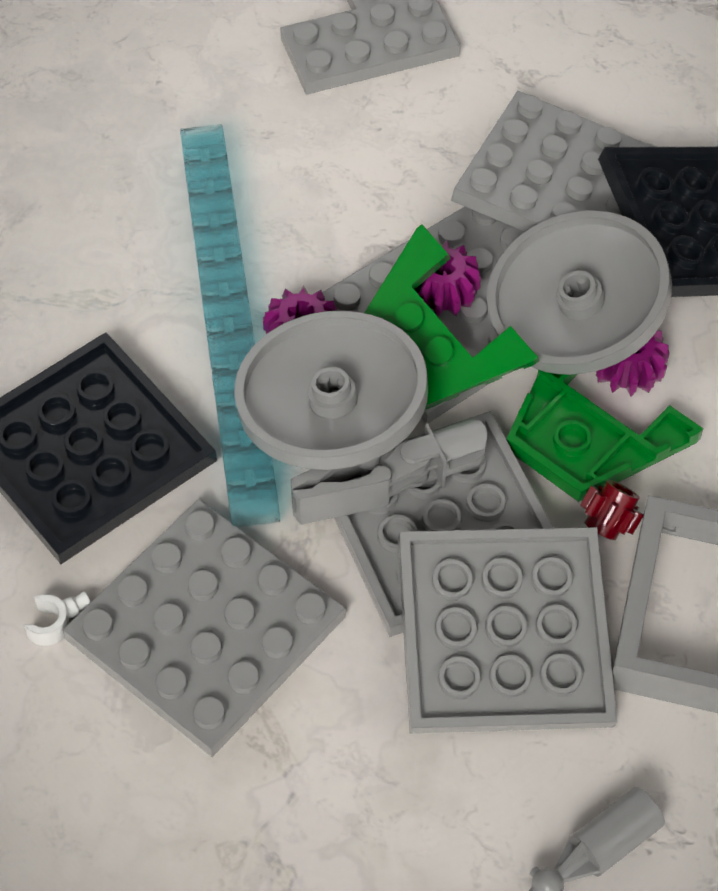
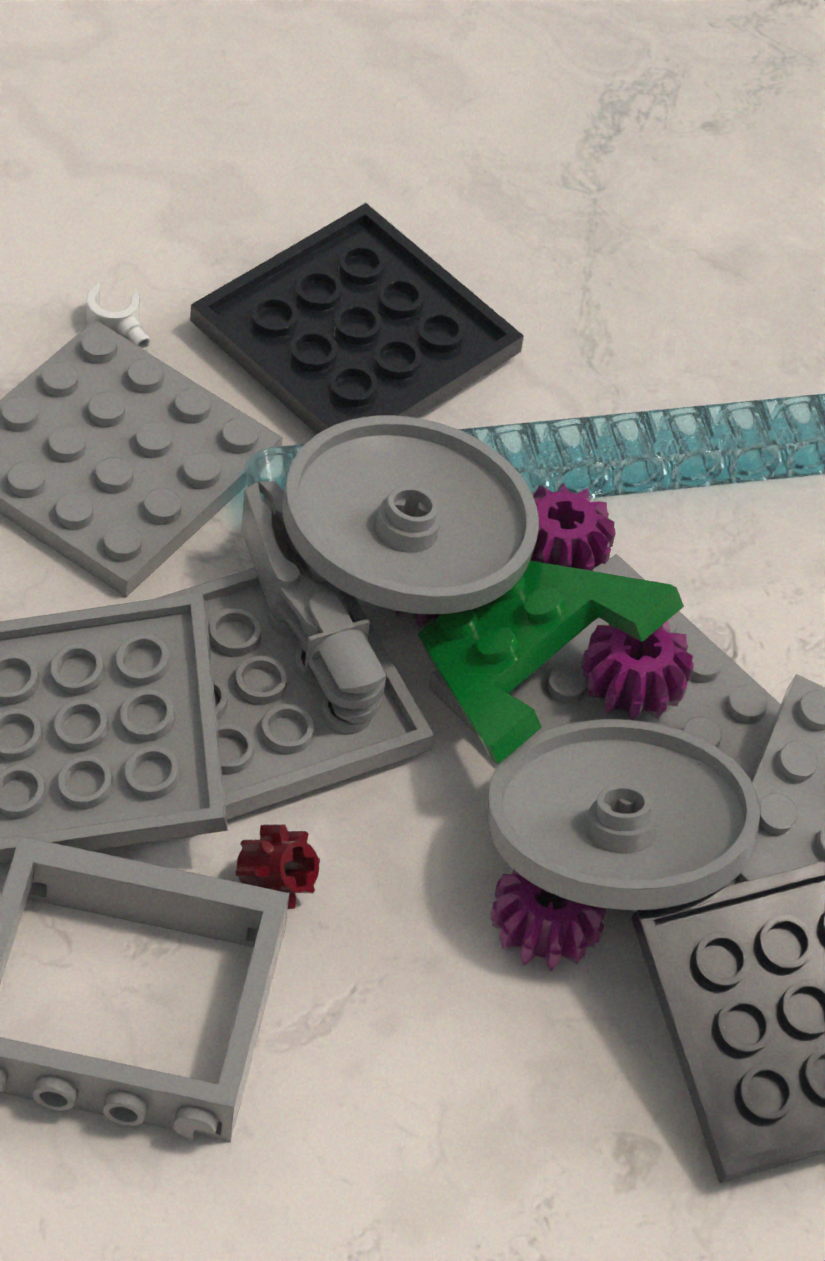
camera: 80 degrees right, 5 degrees down
(585, 446) = (392, 849): green wing -> none

